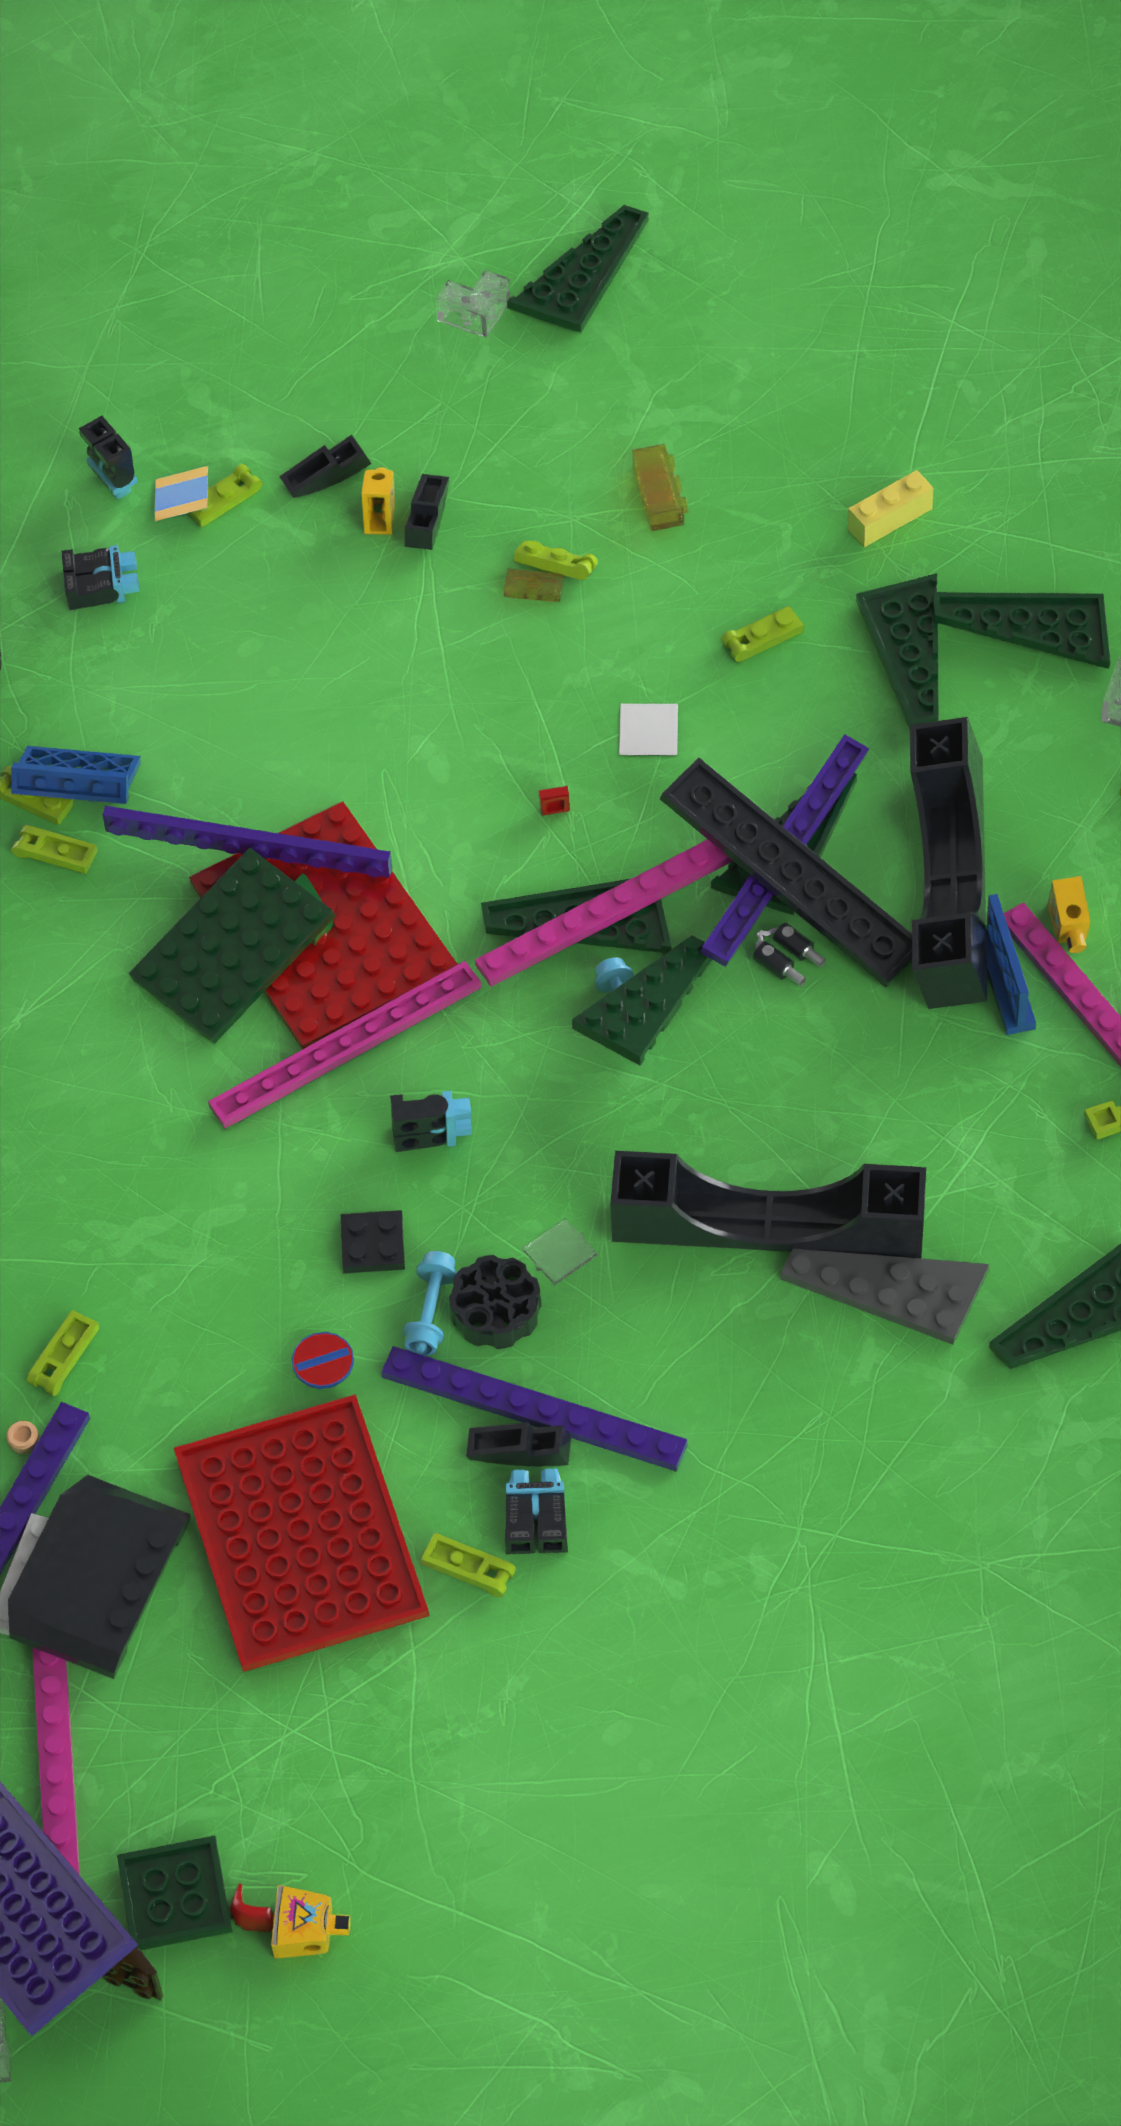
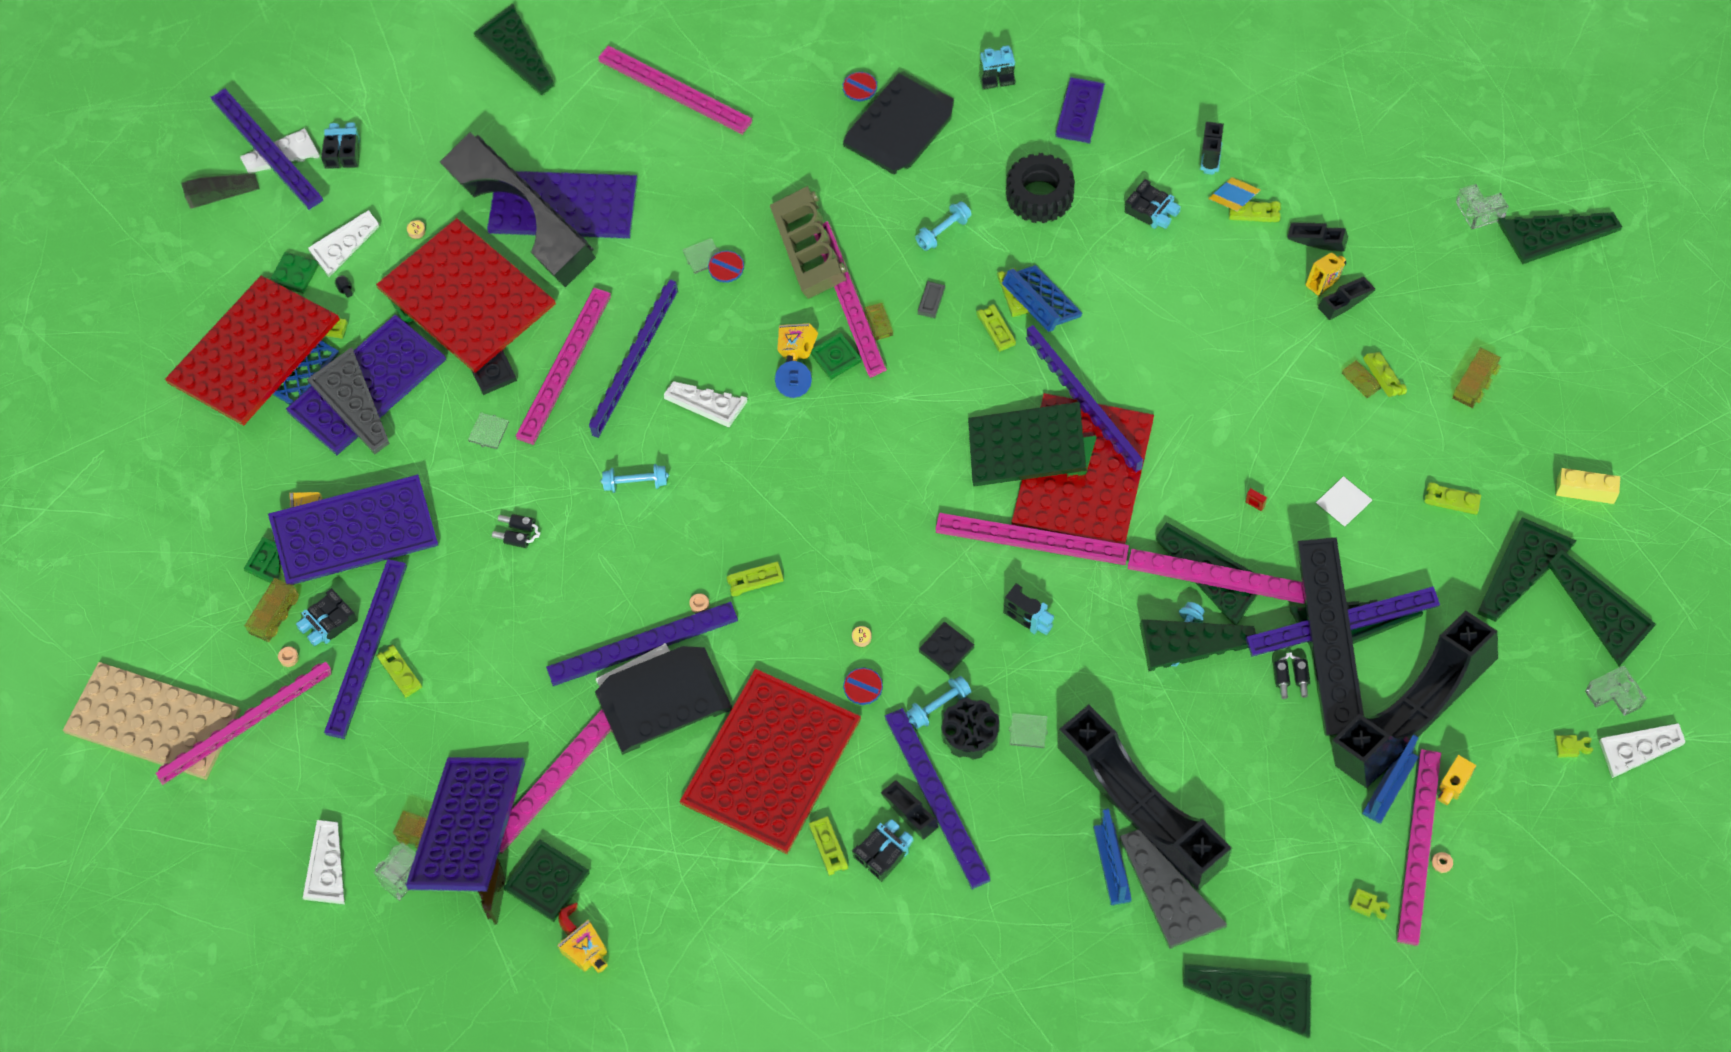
camera: 45 degrees right, 5 degrees up
(259, 1311) = (861, 636): none -> tile
(802, 1307) = (1111, 860): none -> blue fence

